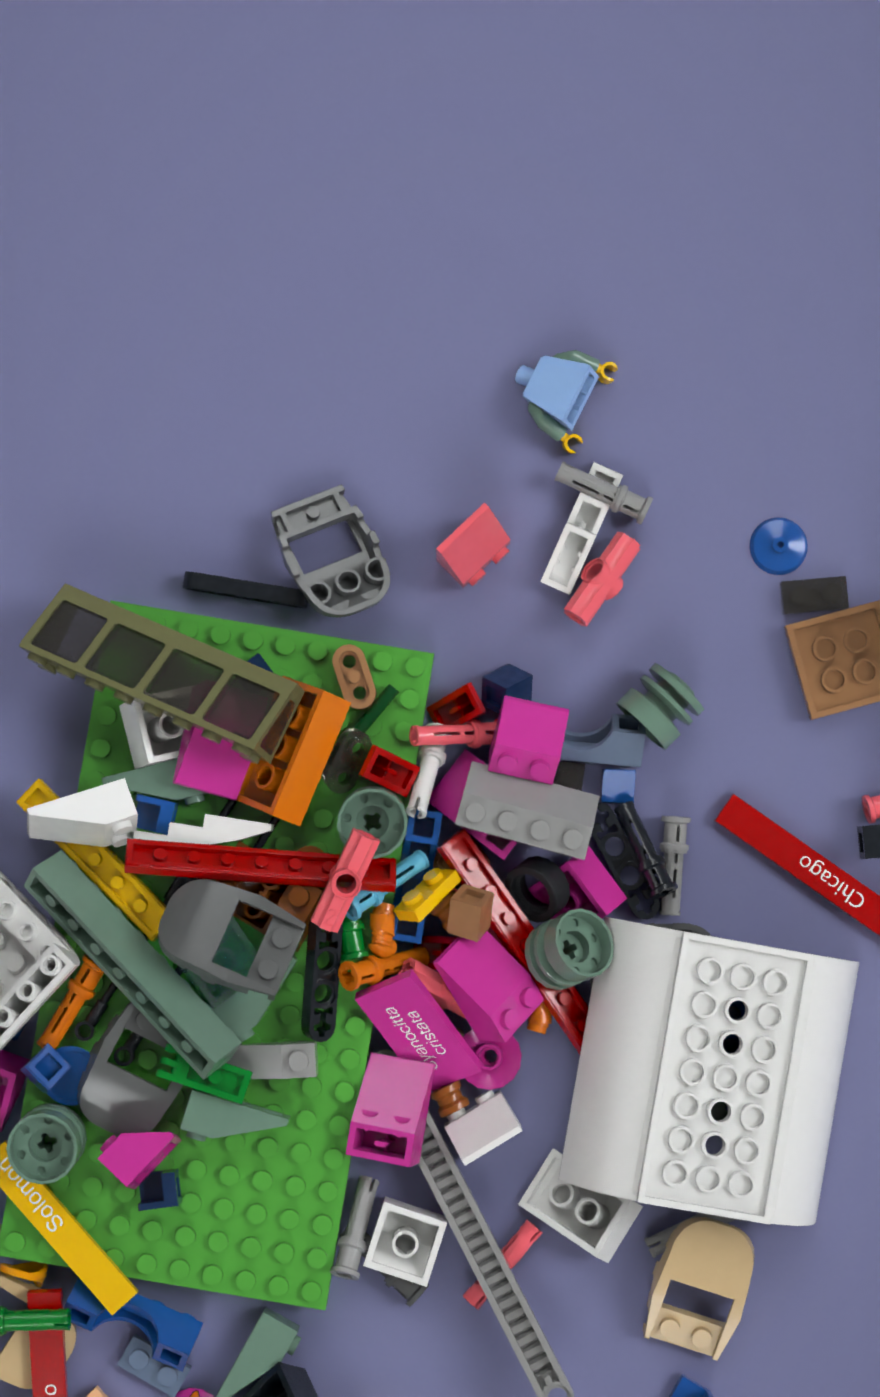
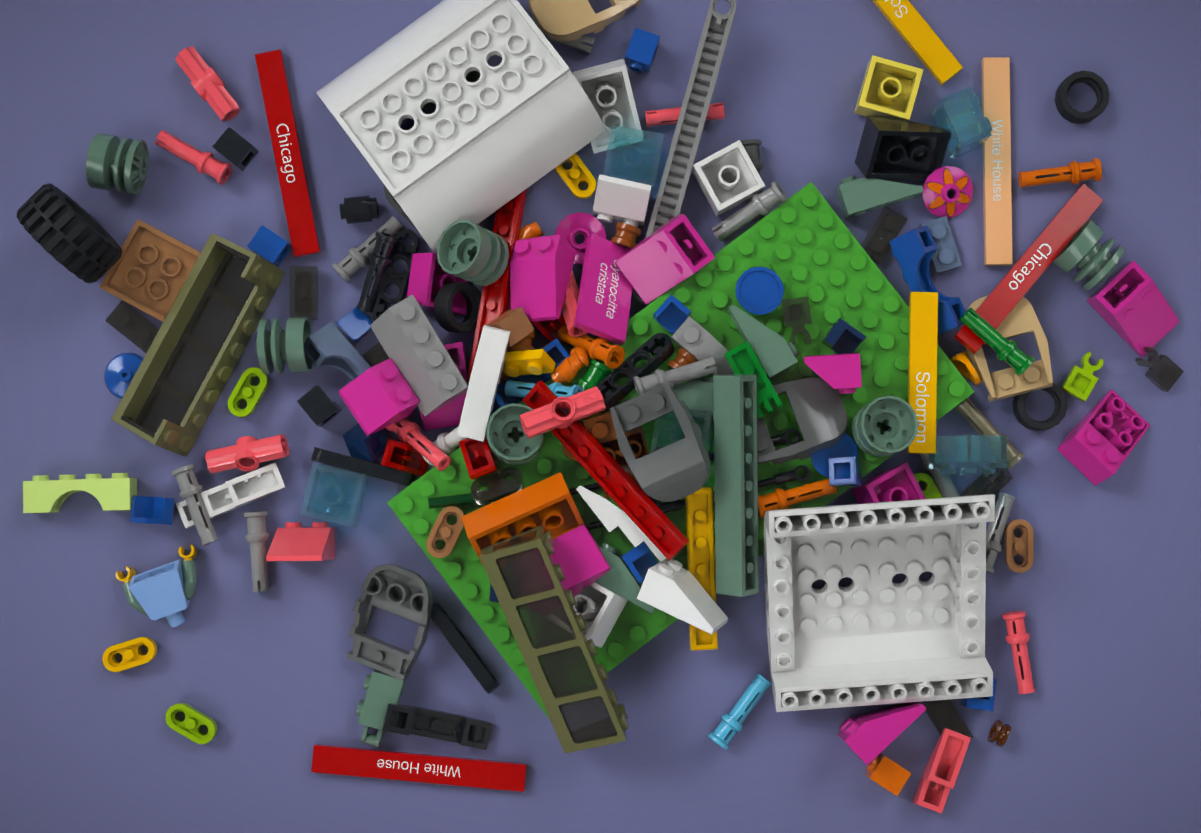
camera: 135 degrees left, 0 degrees up
(186, 450) = (419, 767): none -> red tile
(204, 502) = (437, 725): none -> black slope
(218, 1326) = (883, 230): none -> clear smoke plate
(222, 1170) = (796, 315): none -> clear smoke plate
(272, 470) = (380, 691): none -> sand green brick
(276, 1010) = (676, 375): none -> light grey pin
(276, 1162) = (759, 290): none -> blue piece
(282, 1029) = (683, 358): none -> dark orange wheel
(335, 1063) = (671, 314): none -> blue panel
(422, 297) = (191, 725): none -> lime plate
(444, 841) = (483, 383): none -> white slope
(488, 615) = (334, 495): none -> clear light blue brick
(490, 663) = (362, 466): none -> black beam
(511, 1178) = (633, 155): none -> clear light blue brick
(522, 513) = (257, 537): none -> light grey pin
(535, 309) = (130, 653): none -> yellow plate
(549, 1112) = (576, 175): none -> yellow plate
(579, 681) = (318, 406): none -> black panel
(598, 1286) = (641, 50): none -> blue brick
(637, 450) = (152, 510): none -> blue panel
(655, 633) = (246, 391): none -> lime plate
(687, 431) = (48, 495): none -> yellowish green arch
(692, 769) = (304, 292): none -> clear smoke plate
(715, 892) = (359, 209): none -> black brick
(739, 633) = (198, 345): none -> window
(763, 782) = (270, 246): none -> blue panel

